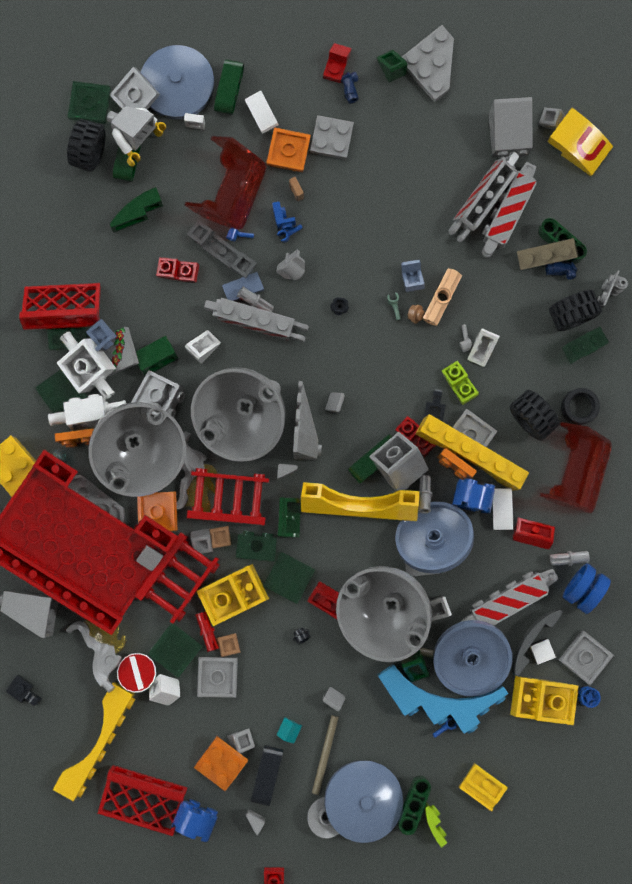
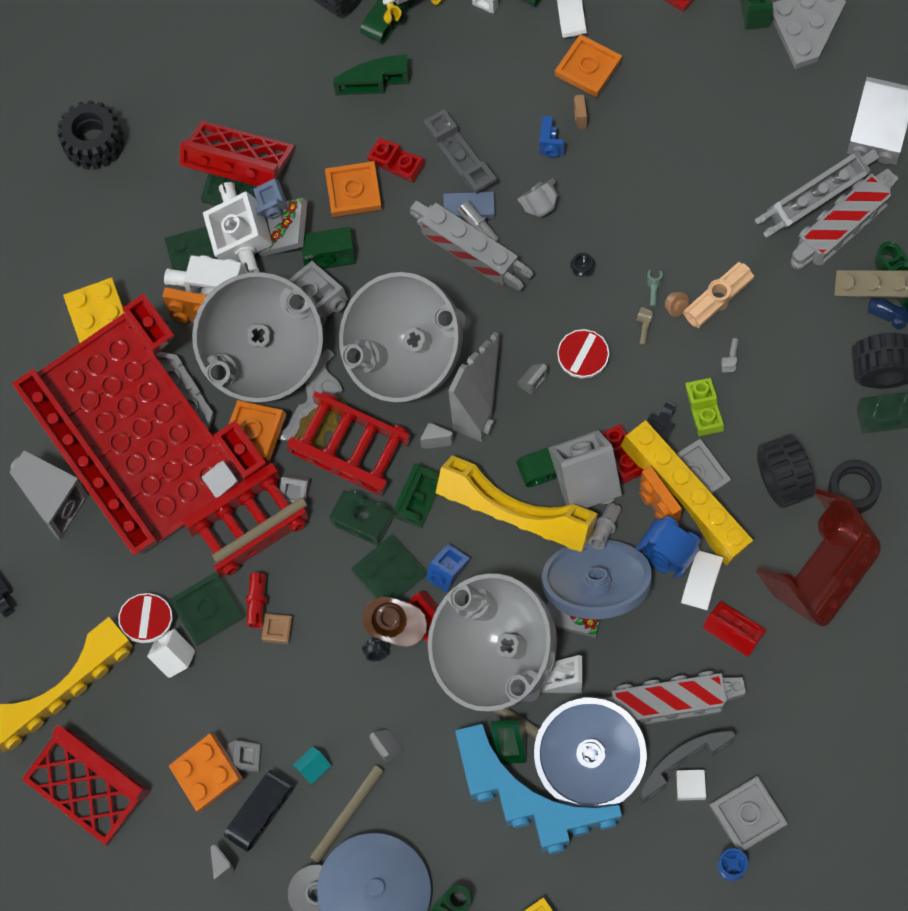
camera: 30 degrees right, 15 degrees down
(105, 649) = (118, 575): light grey piece -> none
(156, 303) = (353, 189): none -> orange plate
(191, 583) = (259, 530): none -> dark tan bar
(194, 820) = (142, 828): blue brick -> none
(202, 346) = (389, 255): white slope -> none
(217, 677) = (246, 664): light grey tile -> none
(220, 537) = (320, 492): medium nougat tile -> none
(232, 594) = (307, 566): yellow slope -> none
(233, 233) = (482, 139): blue hand -> none
(238, 187) = (510, 89): clear red windscreen -> none
(288, 233) = (550, 161): blue hand -> none
(308, 615) = (394, 621): none -> reddish brown piece
(328, 561) = (446, 567): none -> blue bracket
(331, 137) = (648, 69): light grey plate -> none
(349, 88) = (691, 22): dark blue arm -> none
(364, 373) = (583, 353): none -> red piece
(397, 330) = (646, 317): none -> dark tan hand
(412, 275) = (689, 256): sand blue bracket -> none
(444, 728) = (520, 835): blue hand -> none
(483, 347) = (750, 371): white slope -> none
(544, 700) = (670, 848): yellow slope -> none
(569, 558) = (771, 675): light grey axle -> none
(586, 588) = (778, 716): blue wheel -> none

